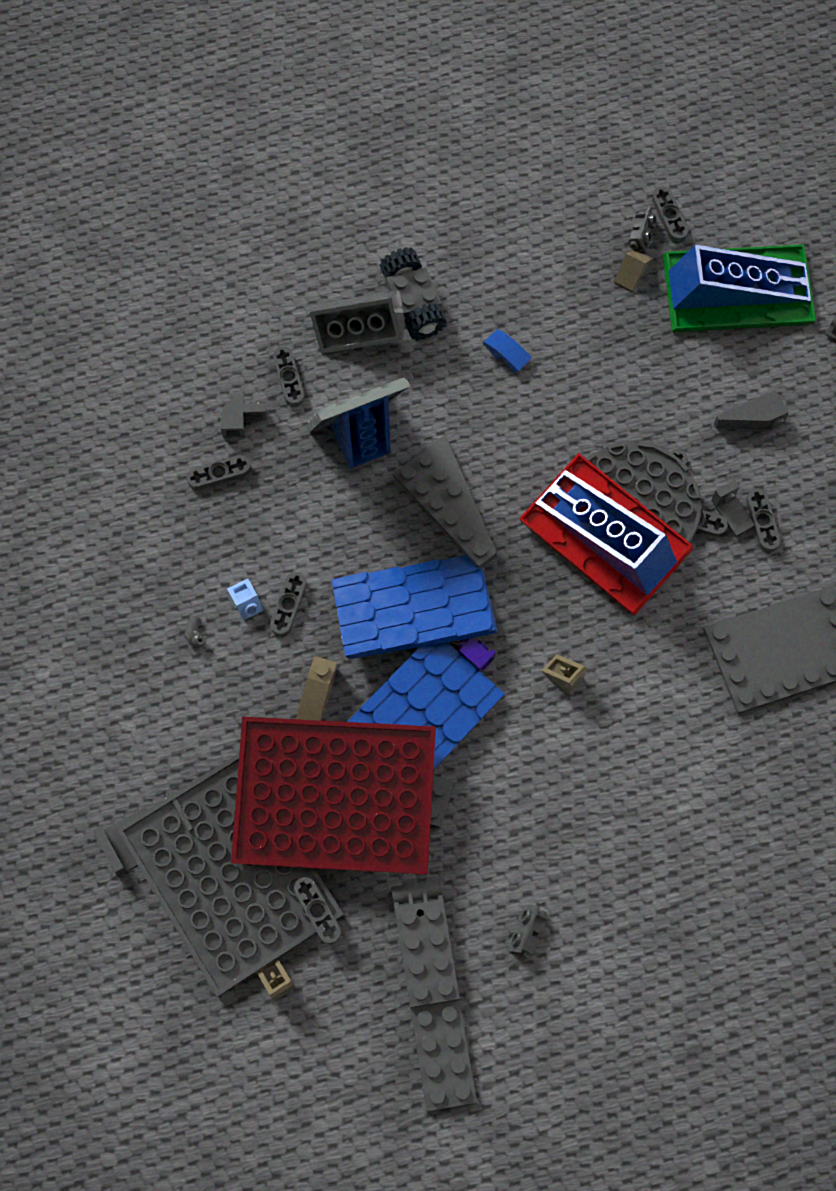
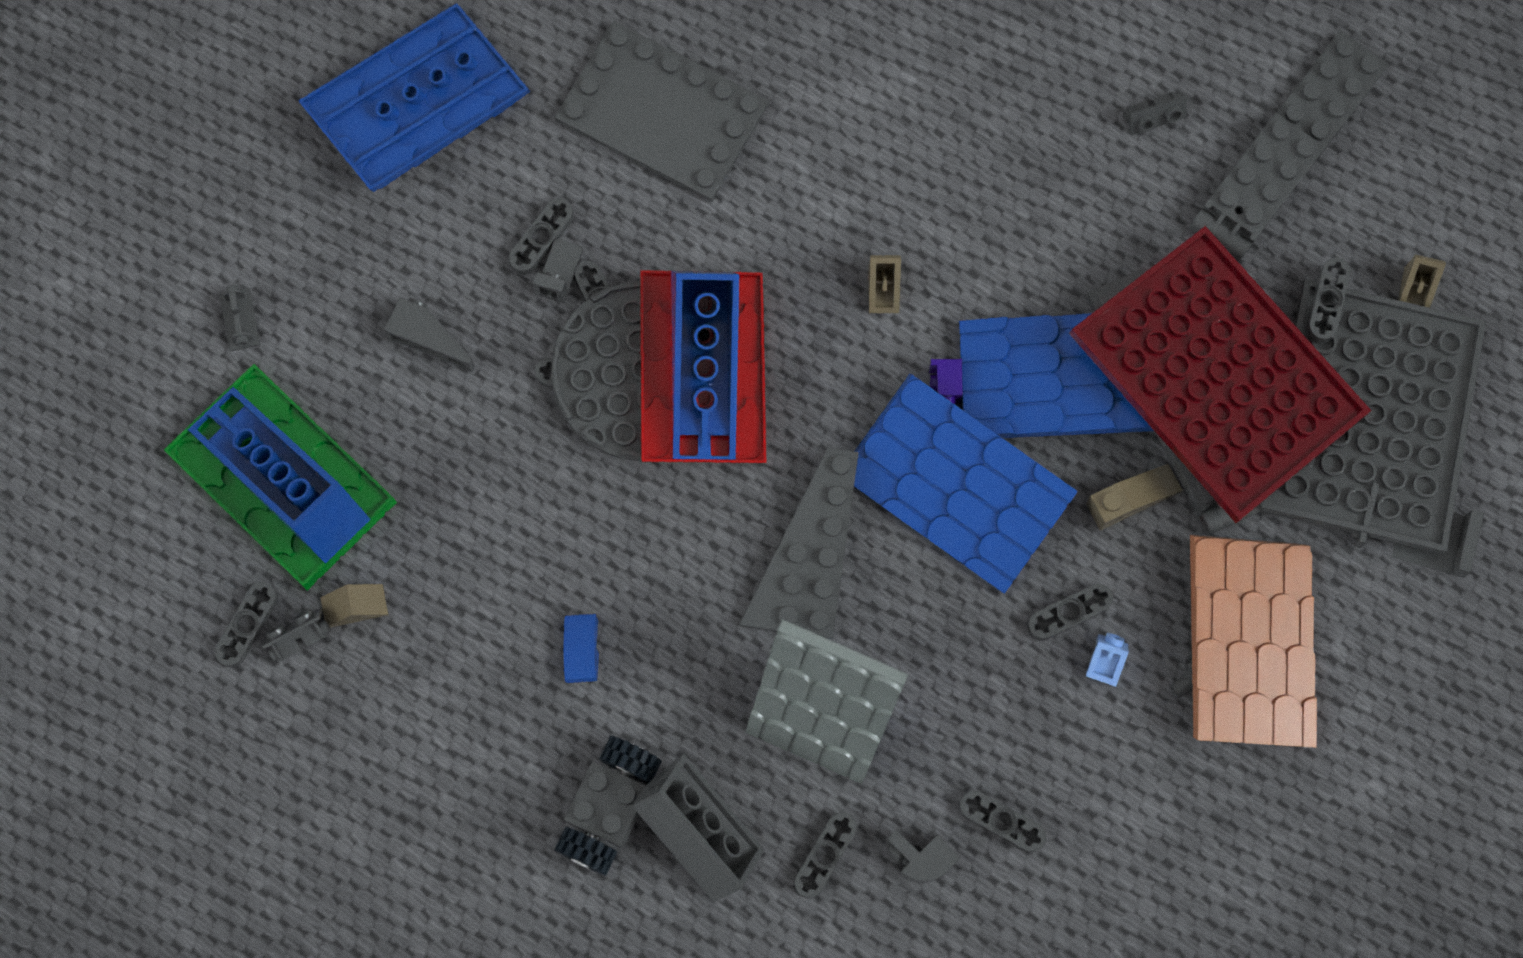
camera: 135 degrees left, 5 degrees up
(178, 680) = (1252, 642): none -> nougat piece

